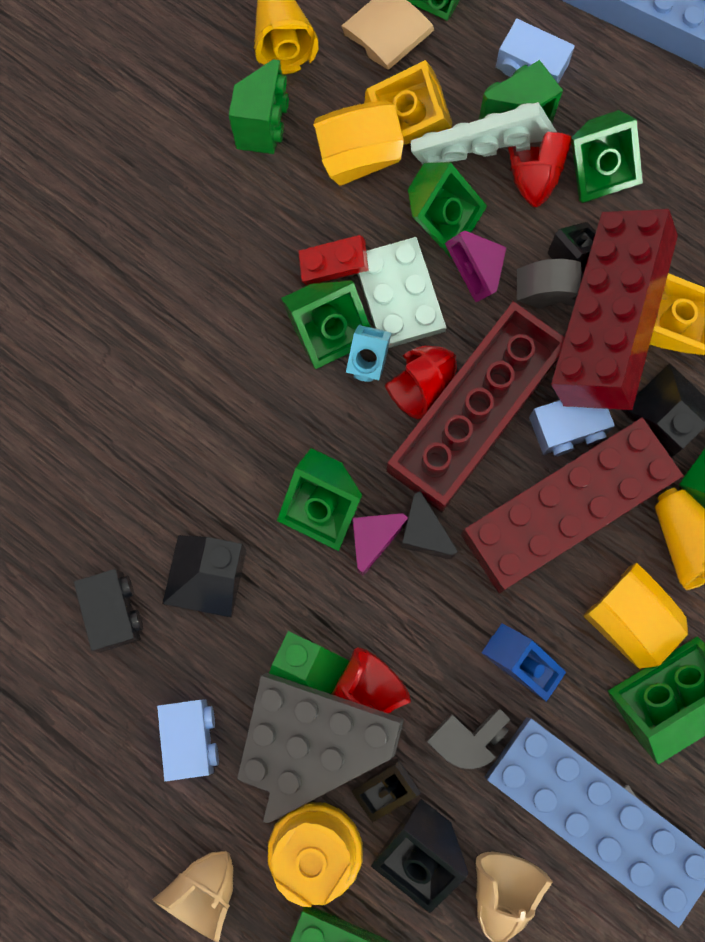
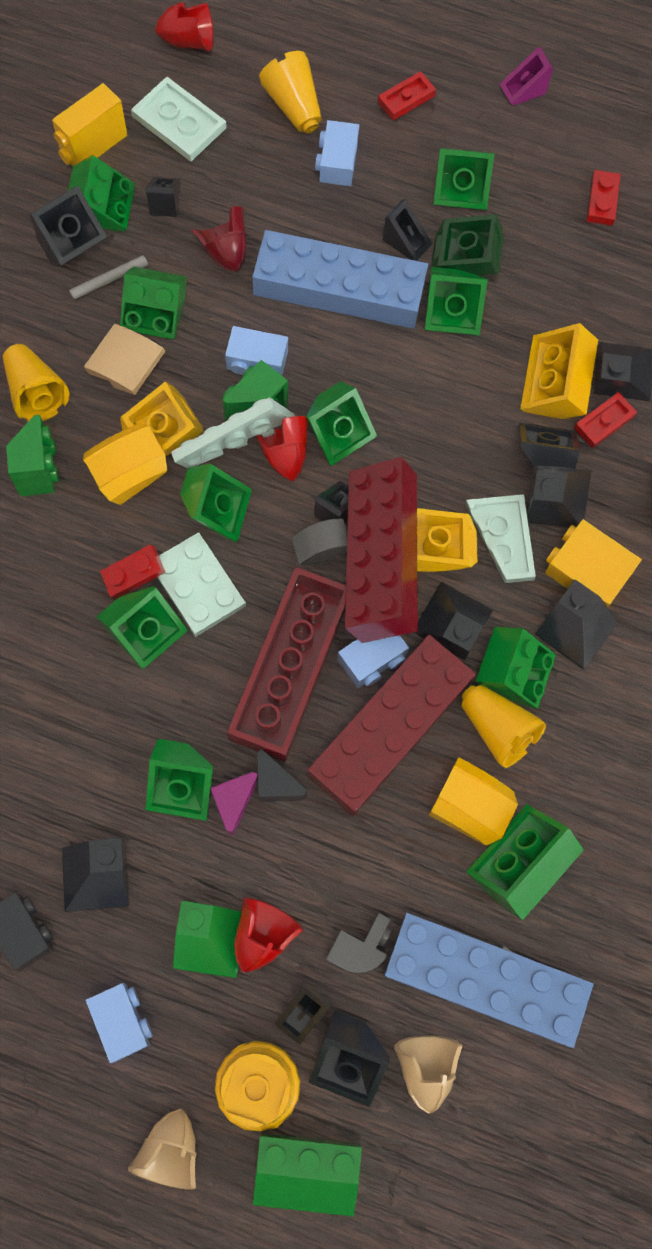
camera: 25 degrees left, 5 degrees down
(310, 743) = (226, 991): dark grey wing -> none
(371, 339) = (185, 631): medium azure brick -> none
(425, 378) = (237, 653): red helmet -> none
(478, 262) = (257, 540): magenta slope -> none
(524, 661) = (389, 868): blue slope -> none

